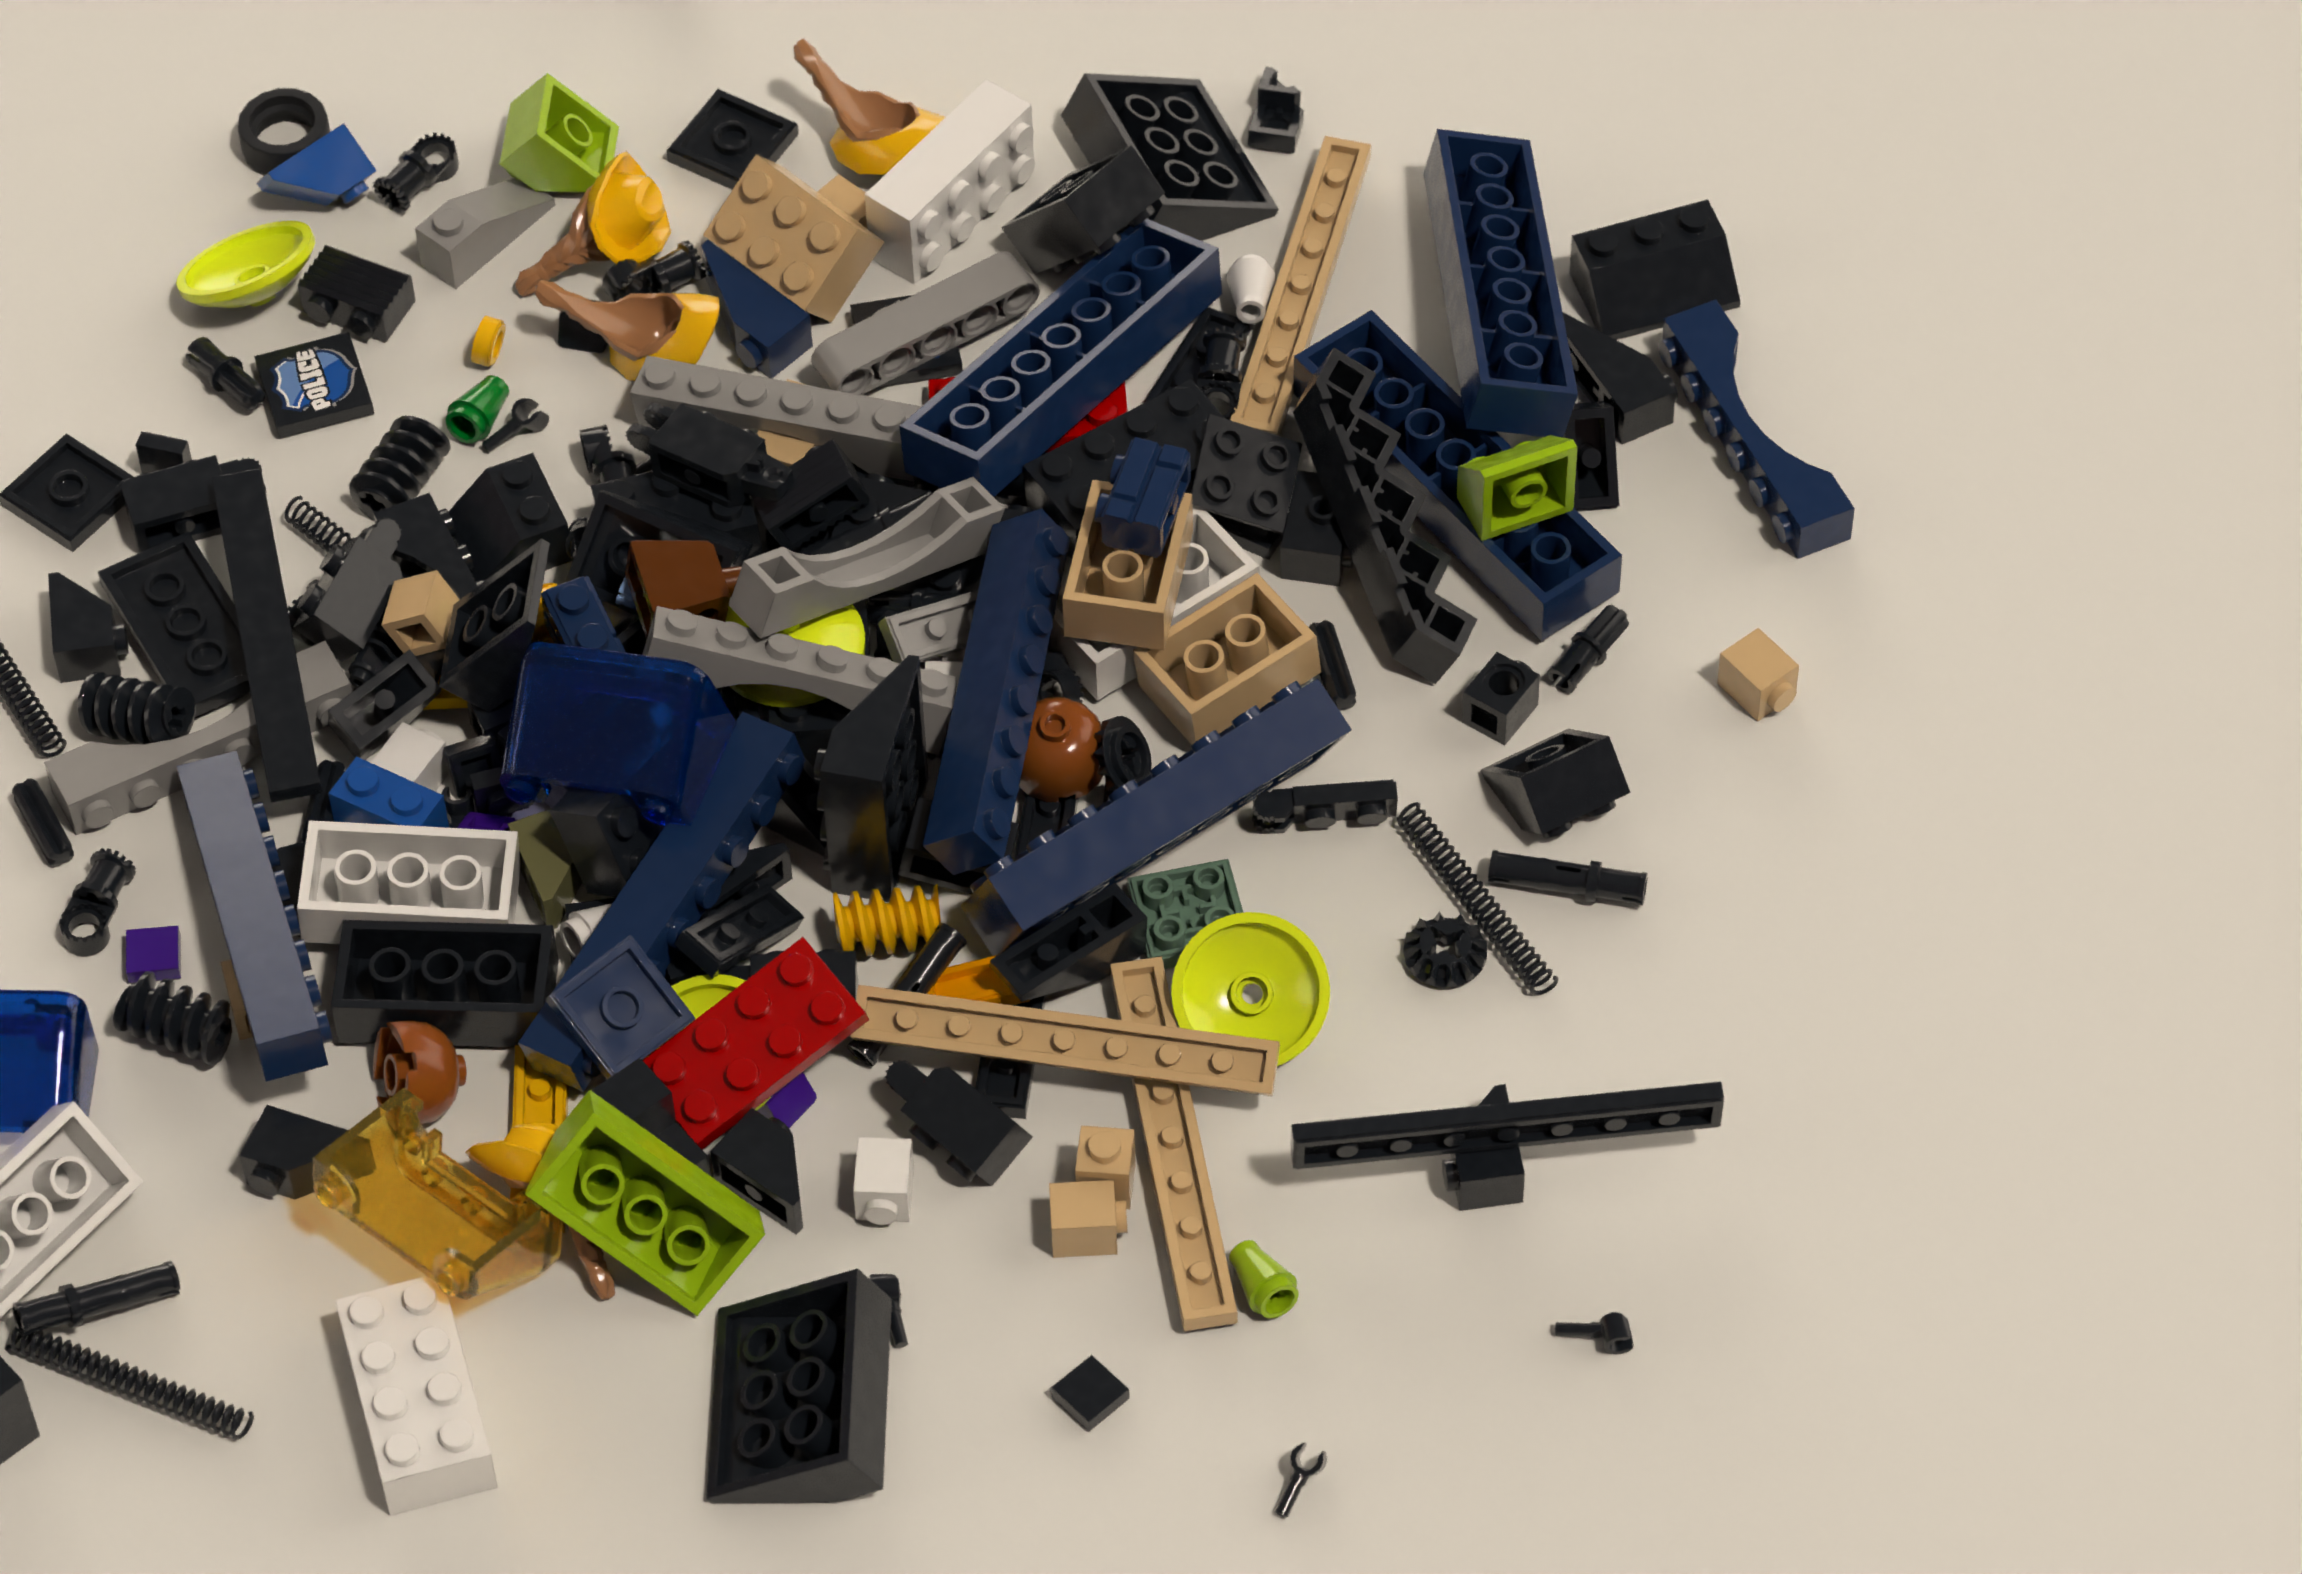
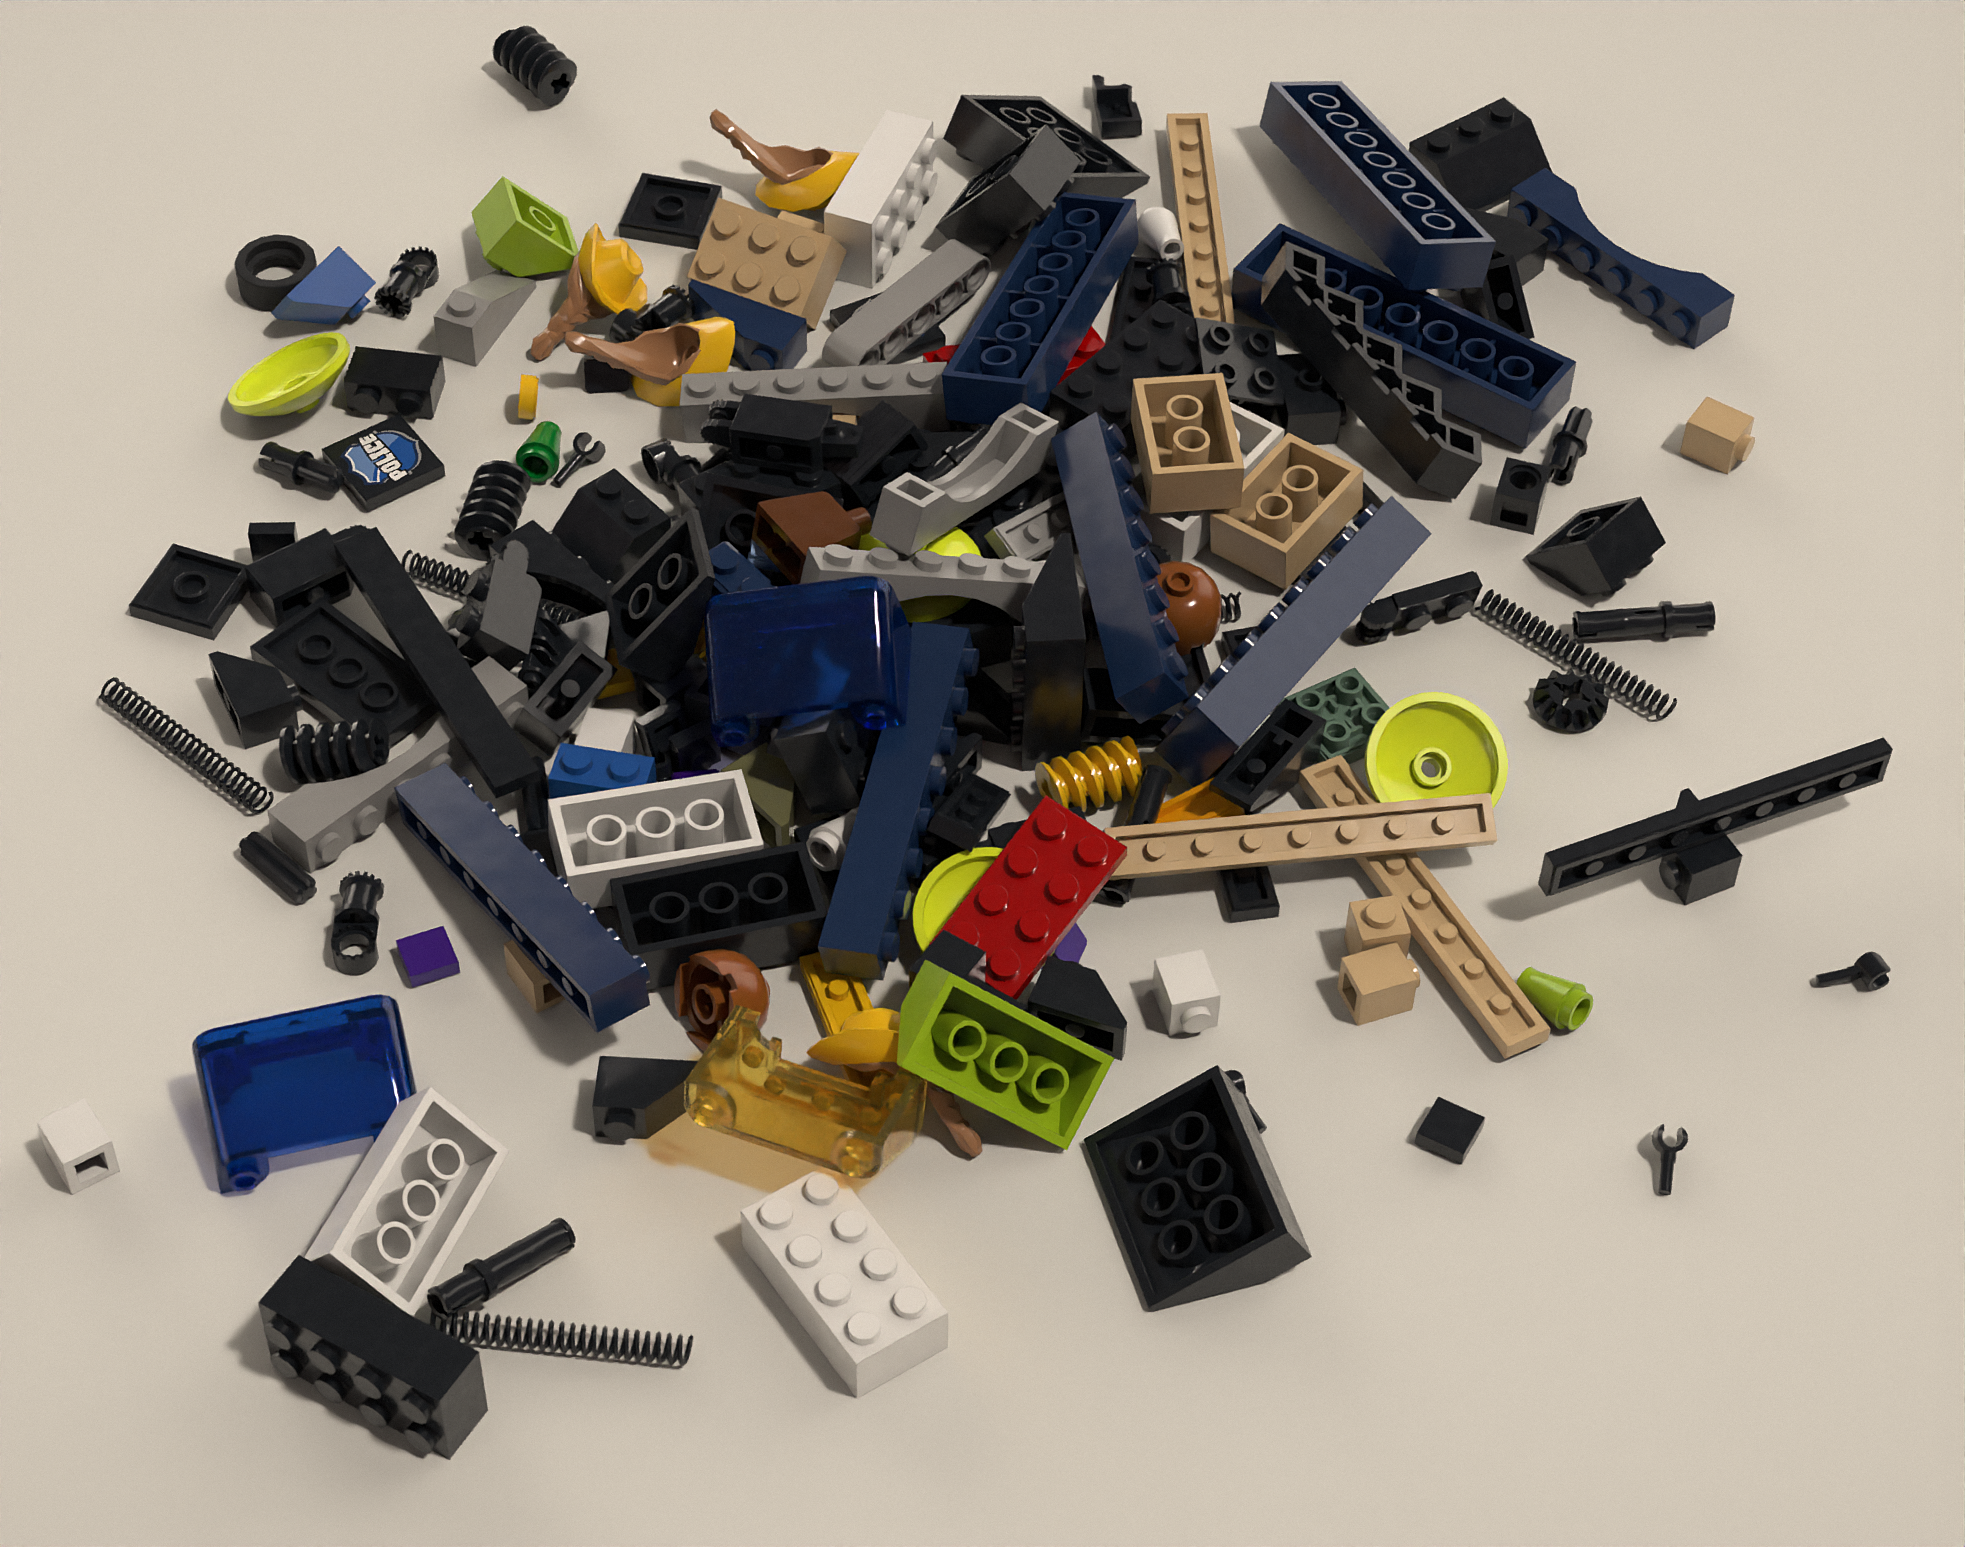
camera: 20 degrees left, 5 degrees down
(175, 1018) = (475, 1004): black piece -> none
(420, 613) = (571, 613): tan brick -> none
(620, 1008) = (904, 893): dark blue tile -> none
(959, 1119) = (1230, 925): black hinge -> none
(1116, 736) = (1237, 600): black gear -> none
(1143, 497) = (1192, 378): dark blue brick -> none
(1518, 485) = (1477, 319): lime slope -> none

